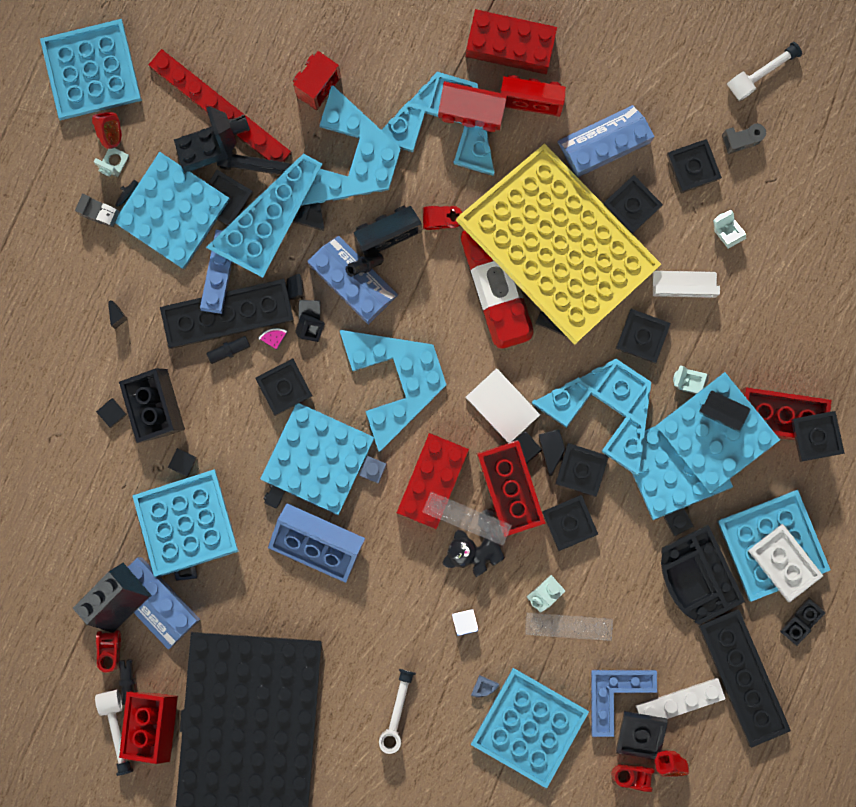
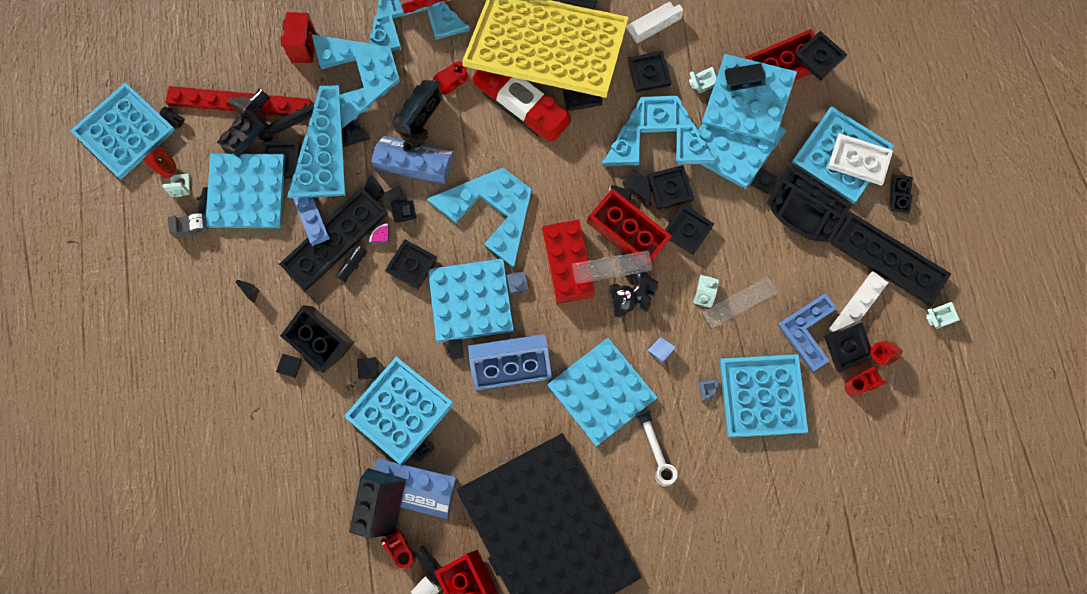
camera: 30 degrees left, 10 degrees down
(145, 84) = (169, 115): none -> black pin
(383, 625) = (602, 392): none -> medium azure plate
(502, 406) = (582, 179): white tile -> none
(752, 764) = (942, 315): none -> light aqua bracket

